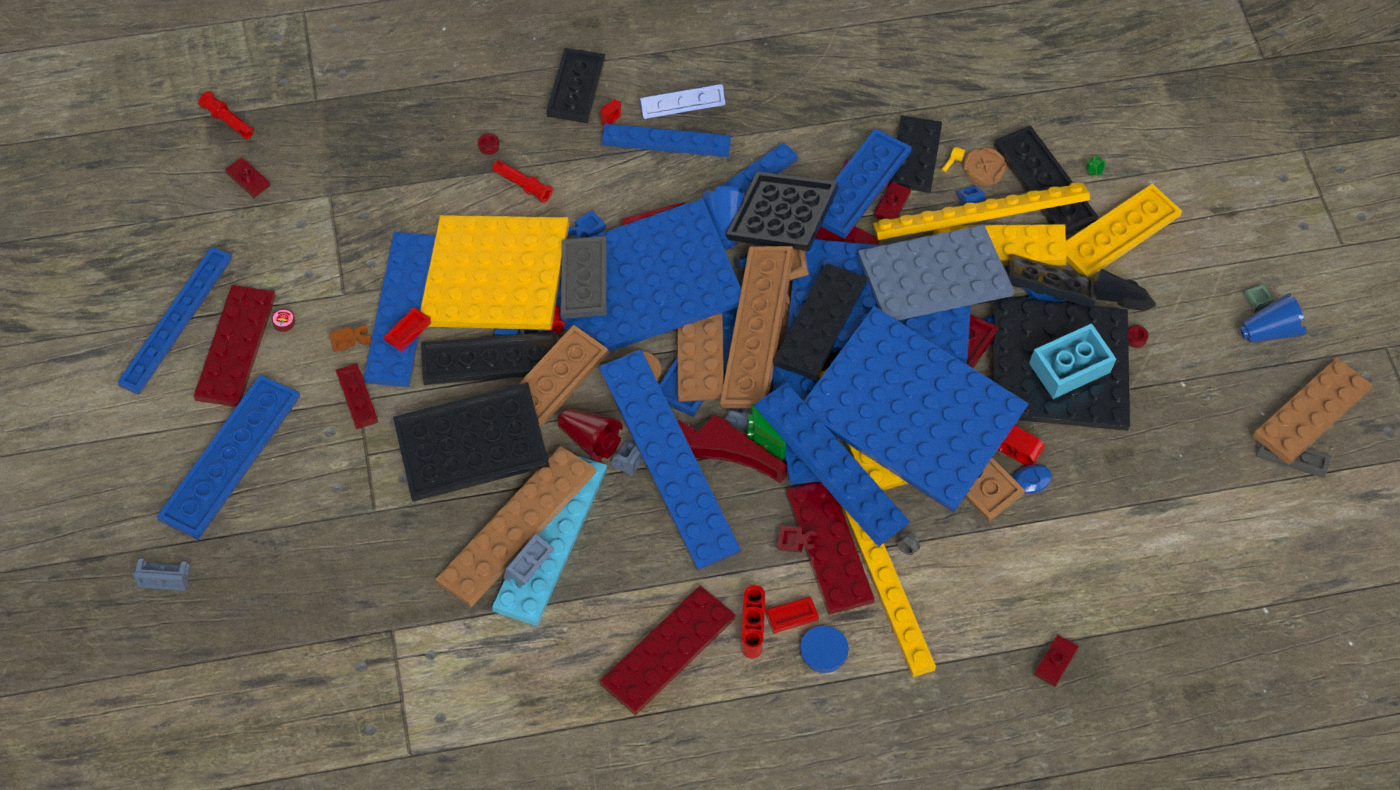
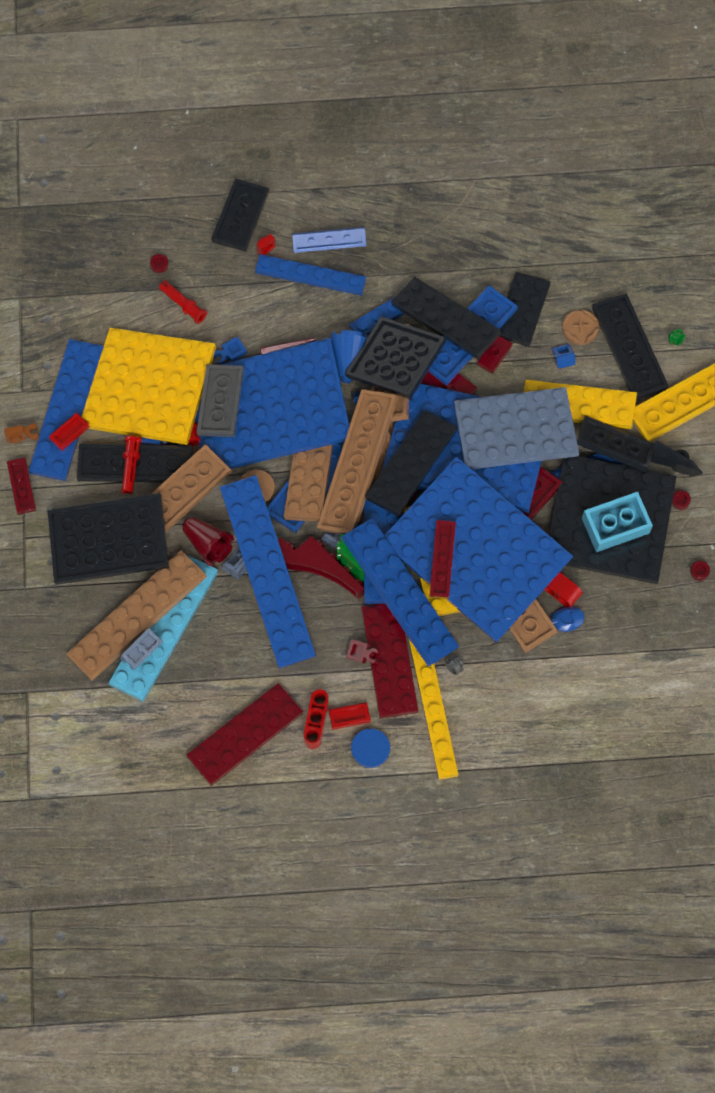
camera: 10 degrees right, 10 degrees up
(486, 348) = (131, 456): none -> red pin
(825, 161) = (446, 317): none -> black plate
(877, 420) = (442, 559): none -> dark red plate
(957, 154) = (558, 313): yellow hand -> none
(981, 211) = (568, 371): yellow plate -> none
(1056, 660) = (557, 779): dark red plate -> none
(1174, 410) = (699, 570): none -> dark red tile

